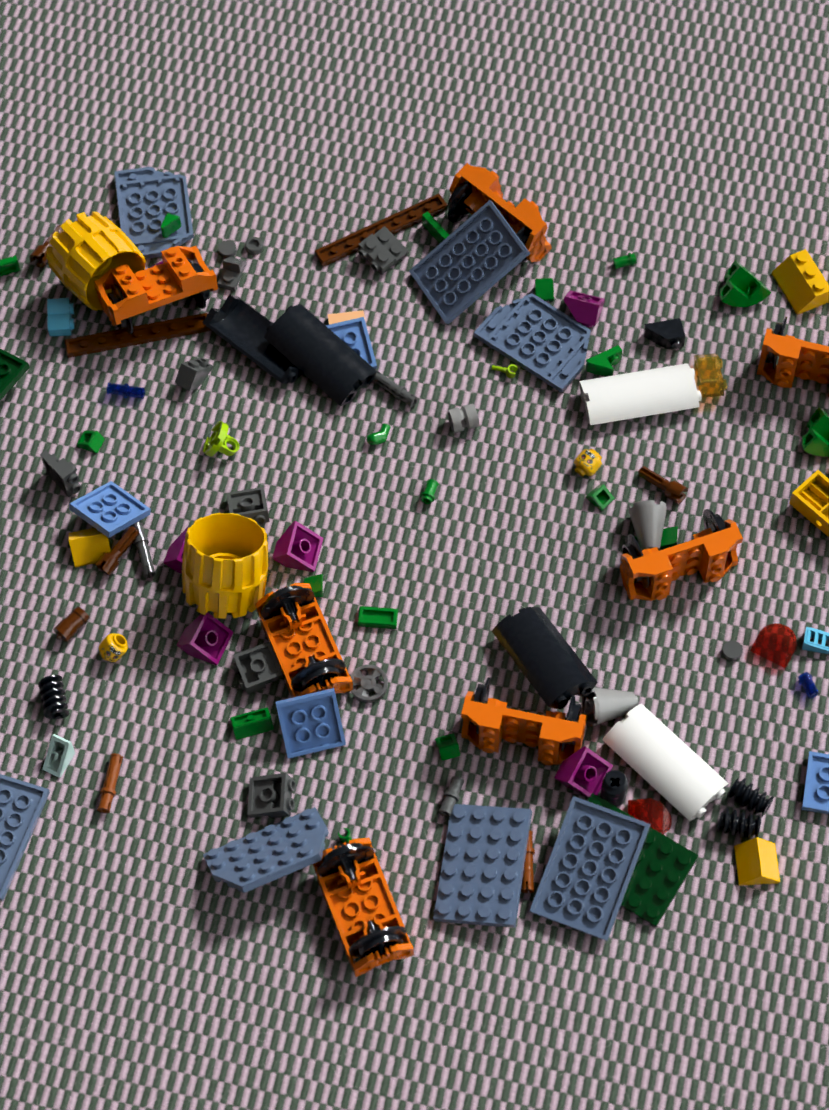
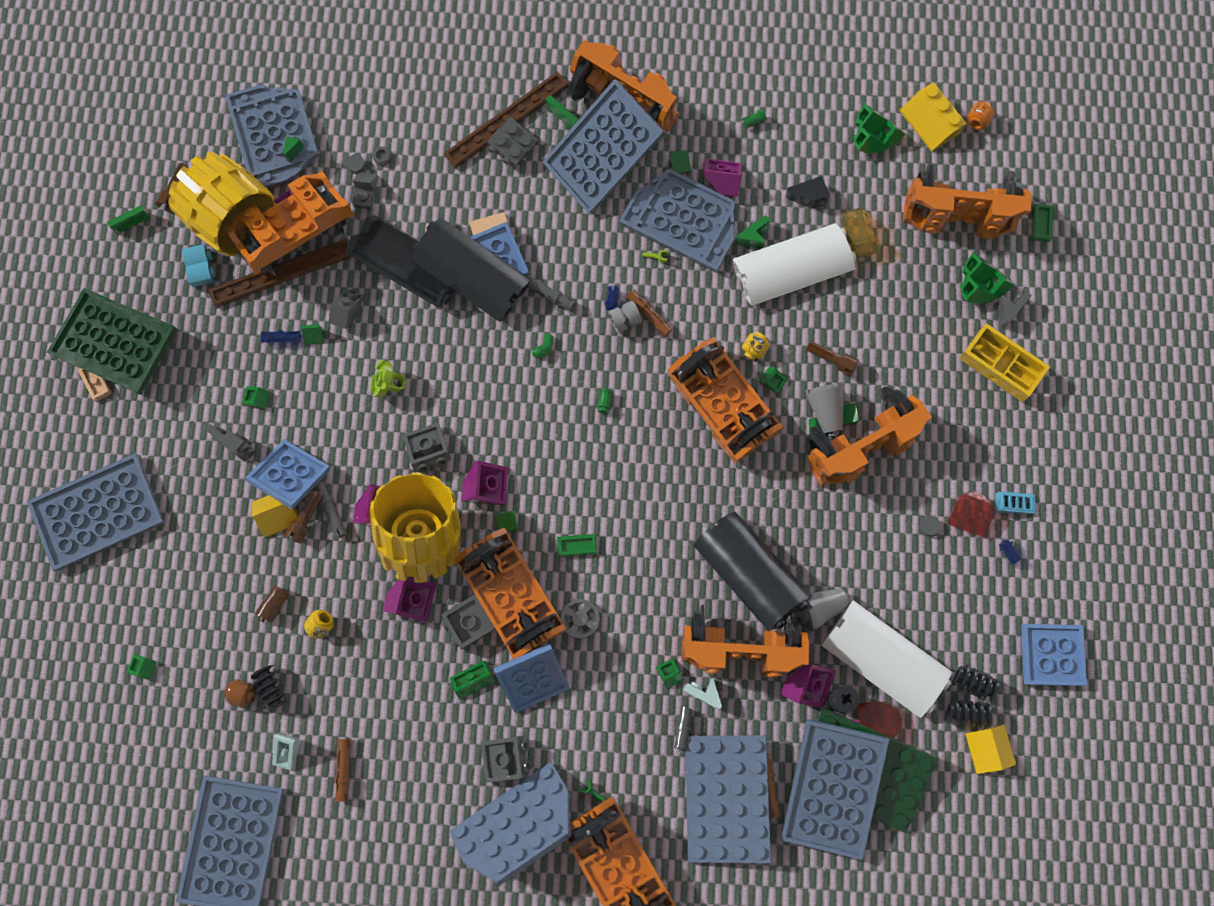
camera: 10 degrees left, 15 degrees up
(24, 699) = (240, 693): none -> dark orange head
(157, 392) = (313, 334): none -> green slope
(454, 399) = (612, 297): none -> clear blue pin
(480, 770) = (710, 695): none -> light aqua slope
(490, 422) = (651, 315): none -> dark orange pin
(545, 502) = (724, 399): none -> orange piece

